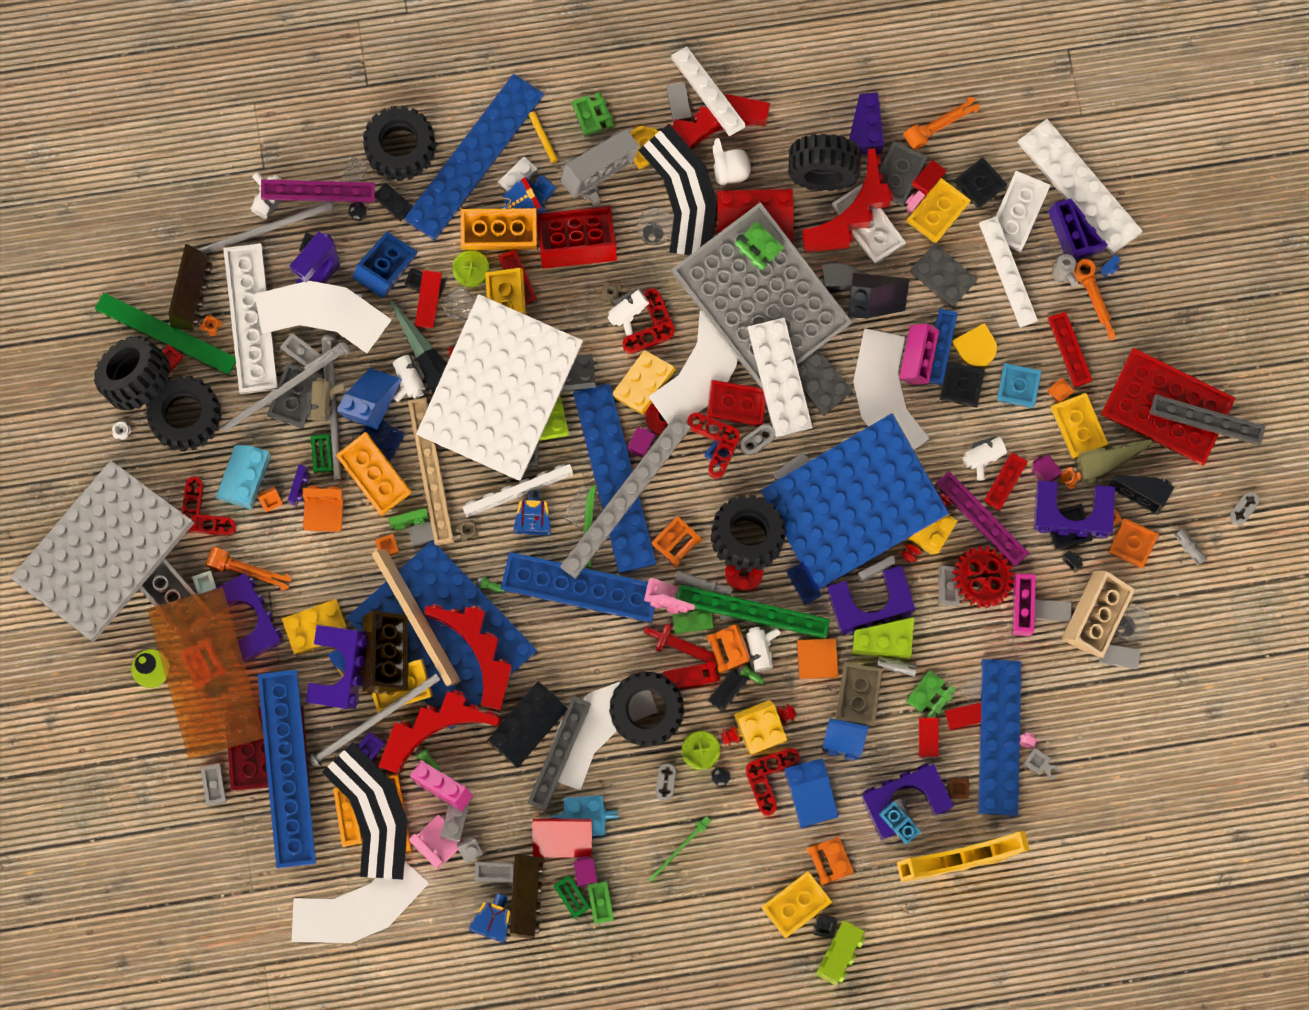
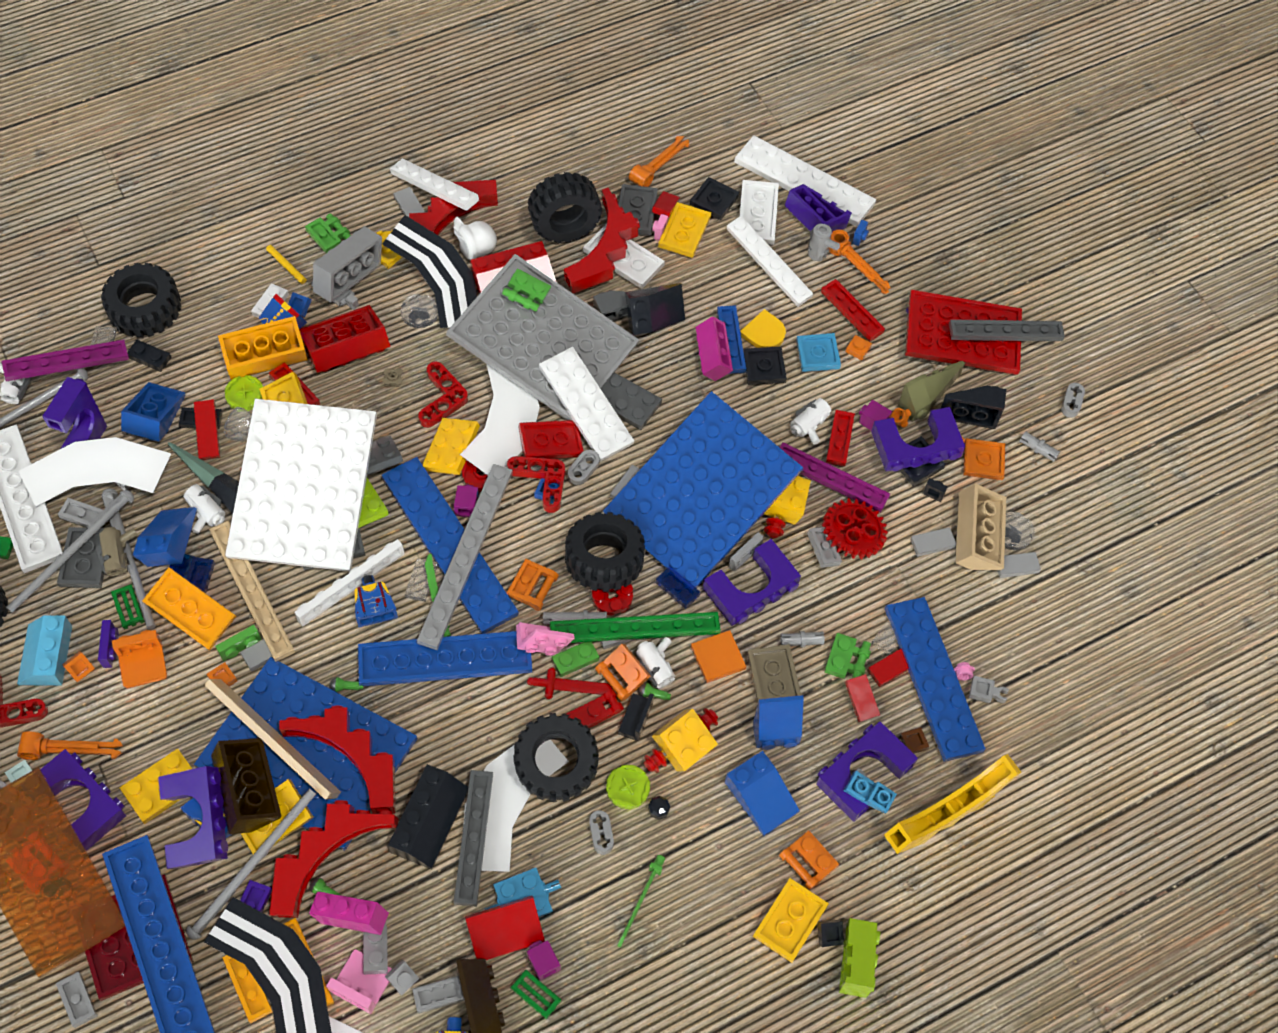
camera: 20 degrees left, 15 degrees down
(357, 211) = (113, 372): black tile -> none
(468, 525) = (307, 631): dark tan plate -> none
(474, 157) = (220, 299): blue plate -> none
(600, 902) = (571, 990): bright green plate -> none
(626, 308) = (412, 384): white piece -> none
(761, 777) = (704, 795): red beam -> none
(867, 124) = (592, 167): dark purple wedge -> none
(879, 385) = (679, 378): white sticker -> none
(886, 640) = (783, 614): lime wedge -> none
(943, 275) = (710, 281): dark grey plate -> none
(1023, 604) = (906, 541): dark pink brick -> none
(1079, 425) = (887, 369): yellow plate -> none

